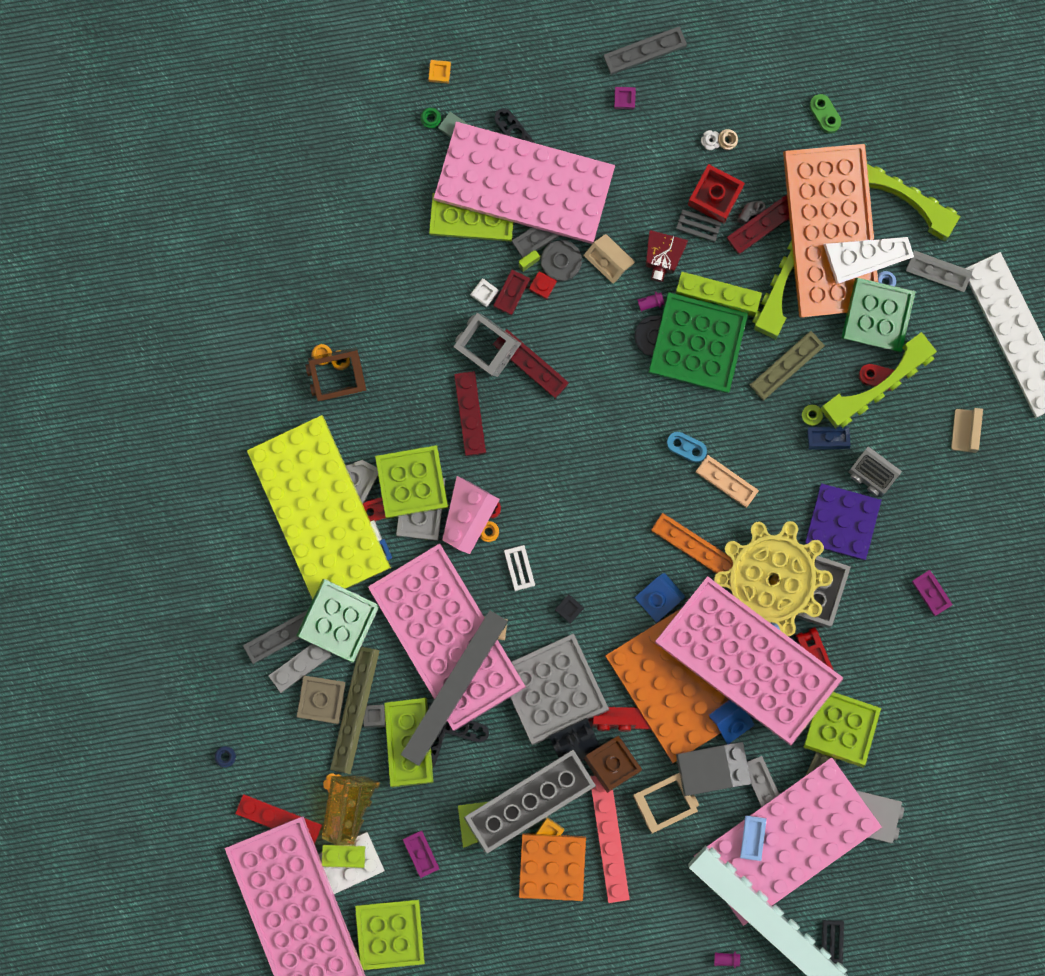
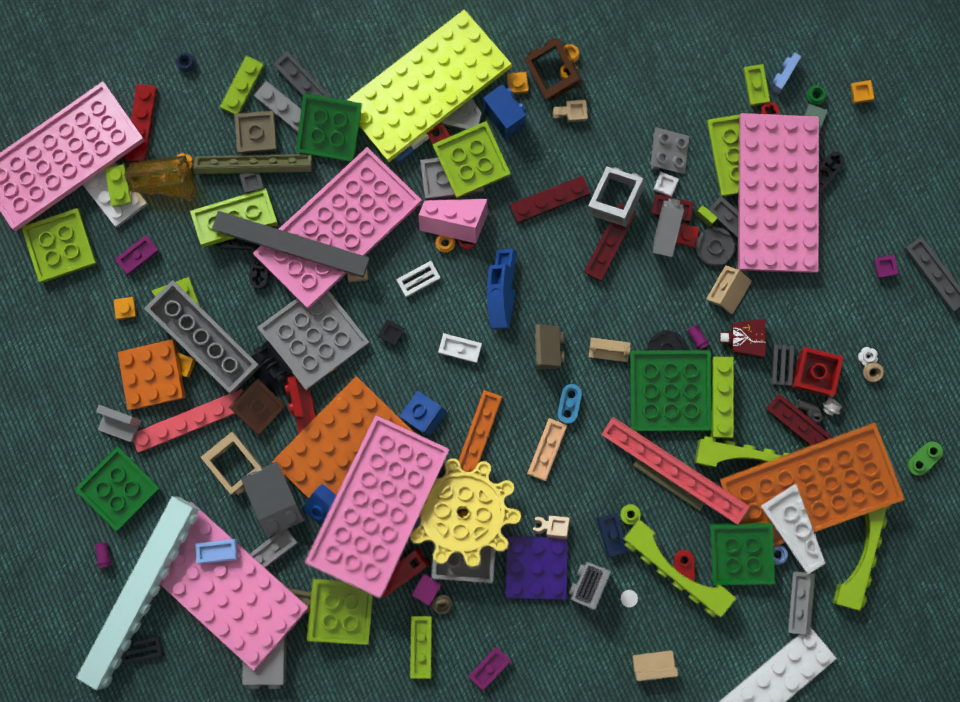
camera: 85 degrees right, 0 degrees up
(266, 703) = (242, 85): none -> lime plate
(338, 416) = (518, 82): none -> light orange plate
(368, 434) = (505, 111): none -> blue brick
(384, 364) = (575, 111): none -> tan plate
(394, 136) = (789, 66): none -> light blue plate
(405, 174) = (756, 85): none -> lime plate
(434, 162) = (770, 105): none -> red bush
(451, 280) = (669, 151): none -> light grey hinge
(474, 880) = (125, 308): none -> light orange plate
(534, 301) = (668, 227): none -> light grey window
(551, 486) = (499, 292): none -> blue slope
(595, 913) = (118, 423): none -> light grey panel
(602, 543) = (460, 348): none -> white plate
(624, 453) = (548, 347): none -> dark tan slope
(641, 393) = (609, 349): none -> tan hinge
(662, 929) = (117, 489): none -> green plate
(752, 189) = (831, 406): none -> white plate
(780, 358) = (675, 470): none -> coral plate
(808, 491) = (556, 527): none -> tan plate
(840, 636) = (426, 589): none -> magenta panel
(857, 624) = (442, 604): none -> dark tan plate
(894, 438) = (629, 598): none -> white sticker
(895, 656) = (421, 647): none -> lime plate

